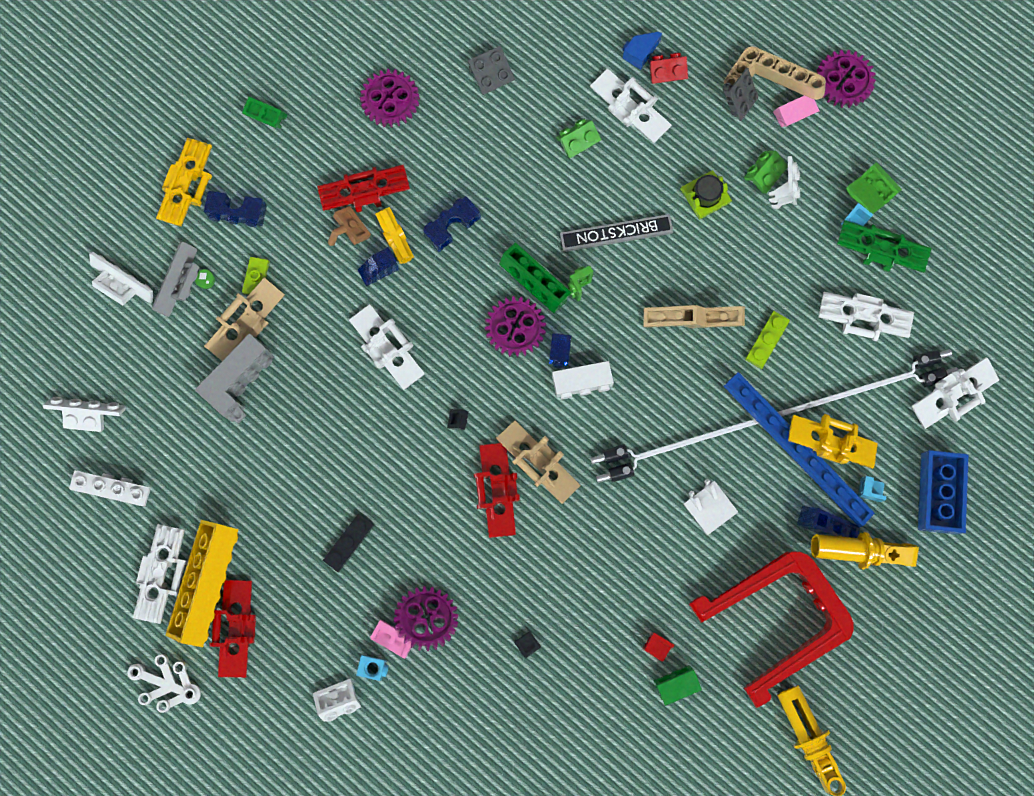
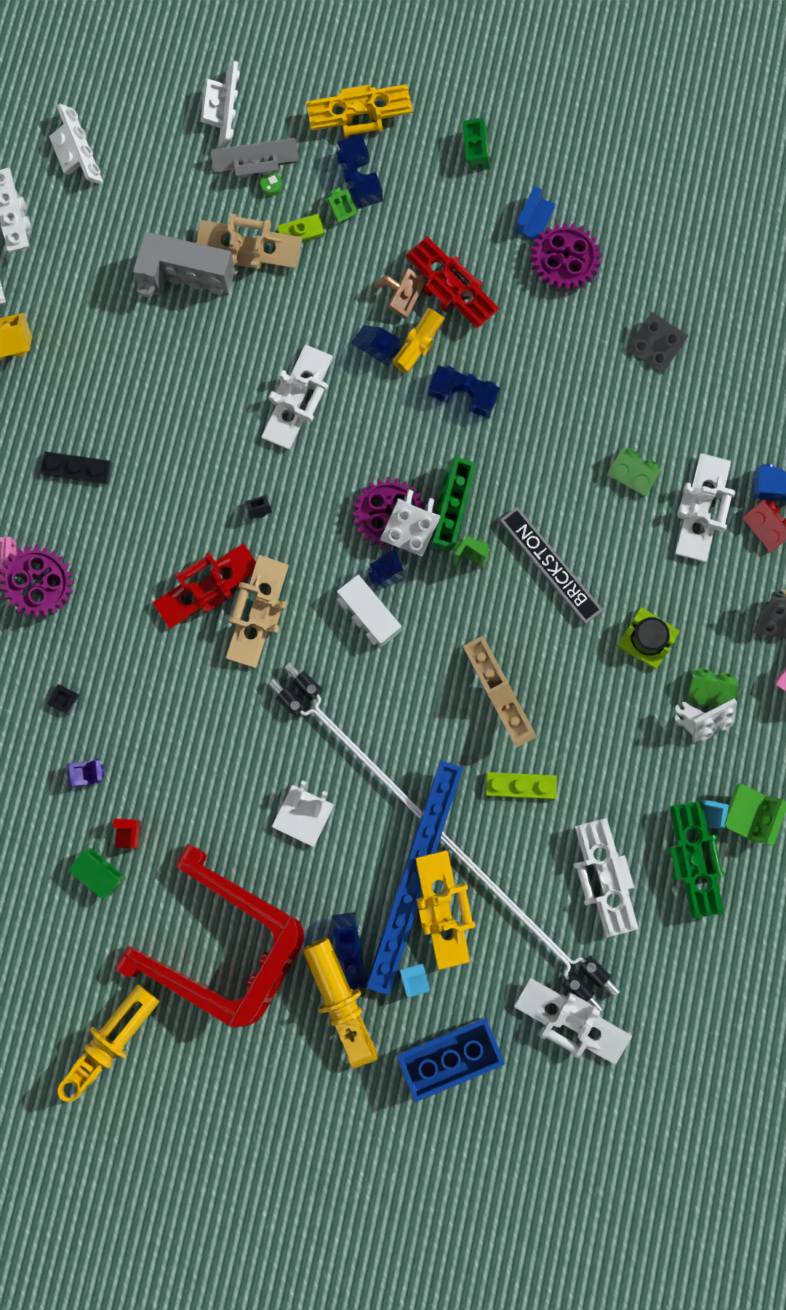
camera: 60 degrees right, 0 degrees up
(253, 235) = (341, 204): none -> bright green bracket
(344, 103) = (534, 215): none -> blue panel
(537, 314) = (410, 526): none -> white plate
(595, 655) = (85, 773): none -> dark purple bracket

